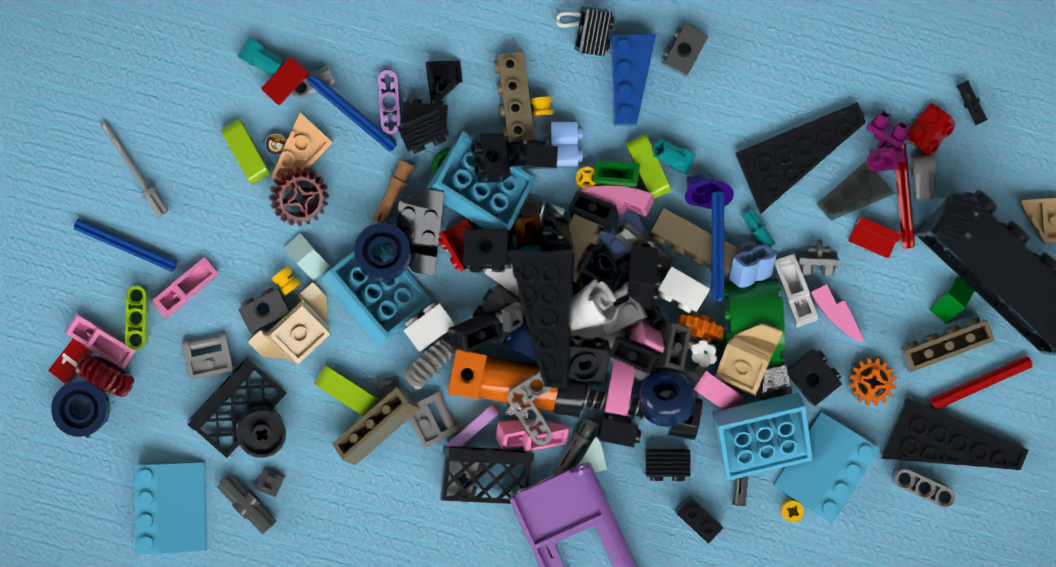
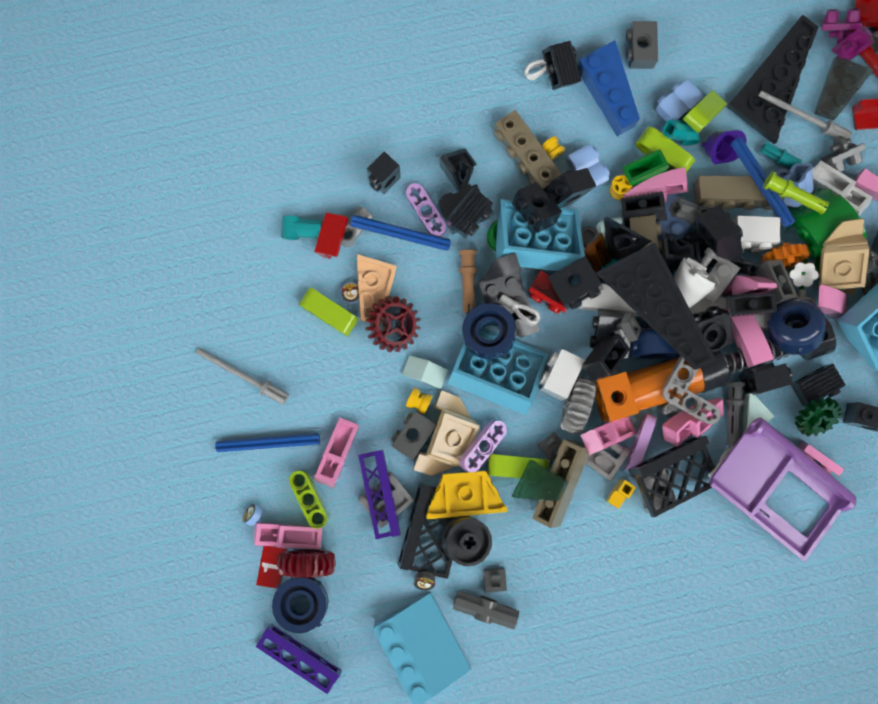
camera: 30 degrees left, 5 degrees down
(58, 455) = (302, 654): none -> dark purple fence
(77, 304) = (252, 514): none -> tile
(204, 448) = (424, 580): none -> tile
(211, 350) = (387, 494): none -> dark purple fence
(282, 391) = (464, 496): none -> yellow wing
(332, 357) = (492, 443): none -> lavender beam
(354, 415) = (539, 484): none -> clear green wing
(364, 48) = (383, 173): none -> black brick
(420, 239) = (514, 305): none -> white piece
(427, 464) = (620, 492): none -> yellow piece
(443, 405) = (608, 434): none -> bright pink slope
(634, 538) = (826, 463): none -> bright pink plate
(648, 491) = (818, 416): none -> dark green gear
(688, 126) = (679, 102): none -> light blue brick
(705, 149) = (705, 111): none -> lime beam
(730, 265) = (786, 188): none -> lime pin
(820, 225) = (827, 127): none -> light grey piece

